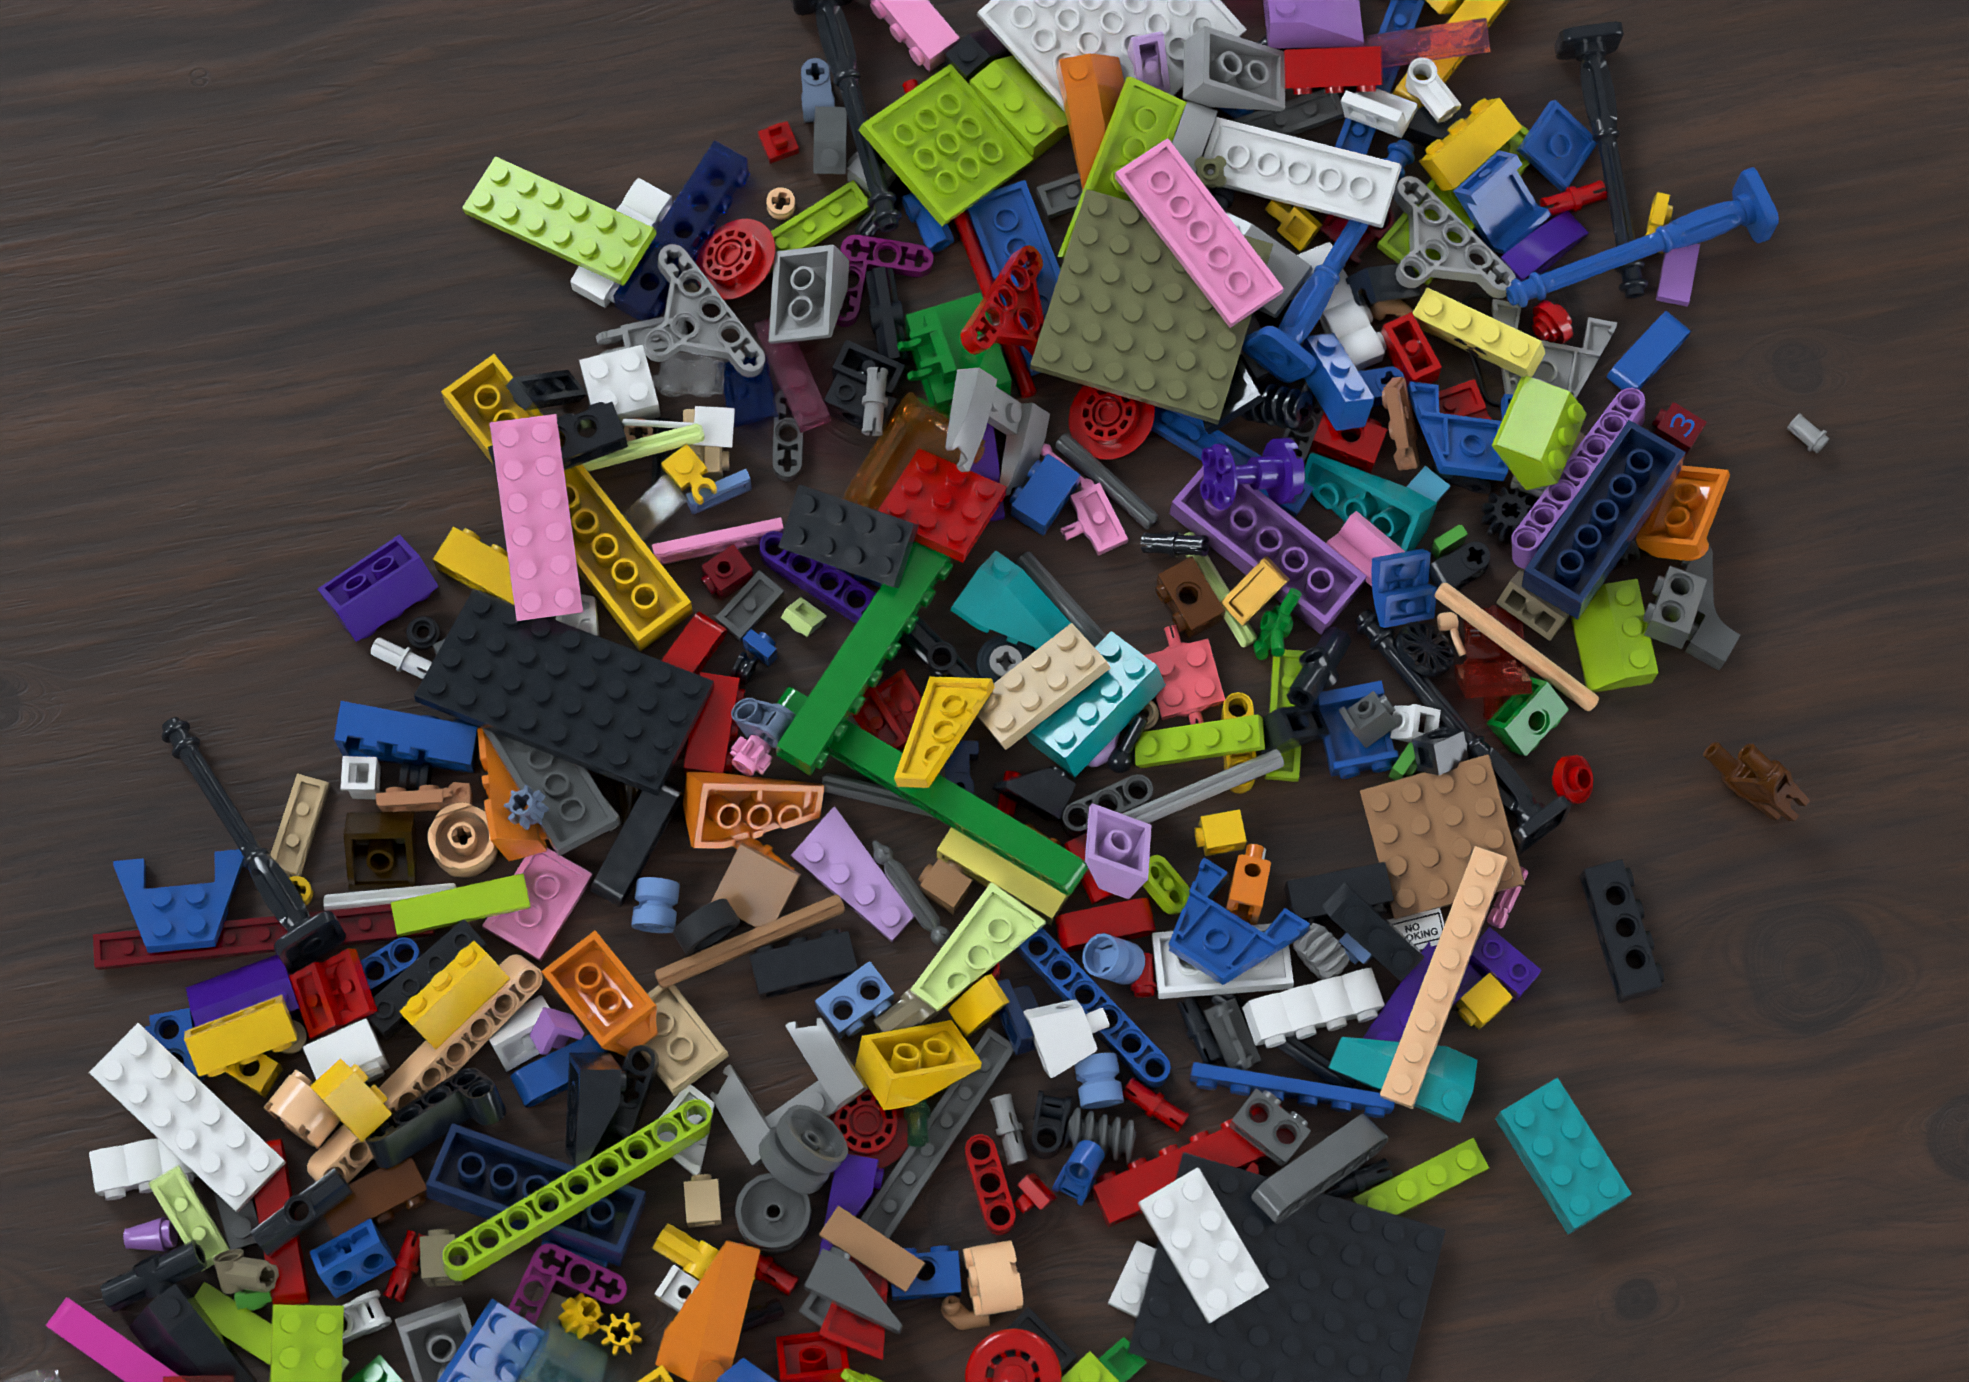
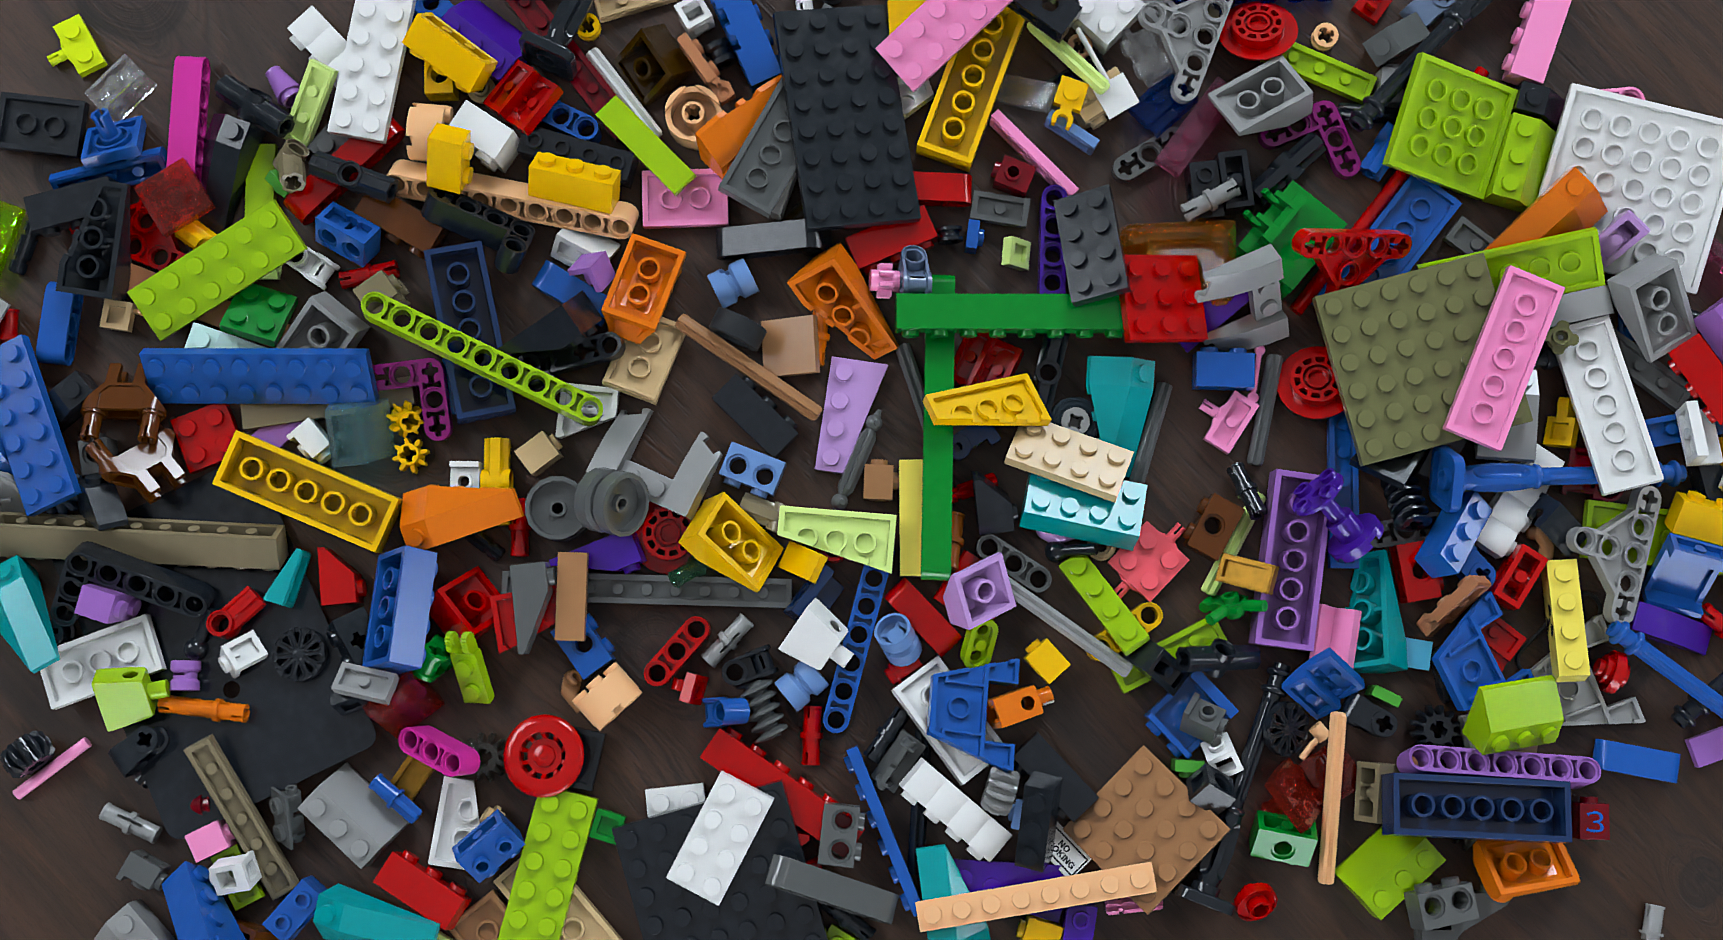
camera: 65 degrees right, 10 degrees up
(533, 813) = (735, 143): sand blue gear -> none

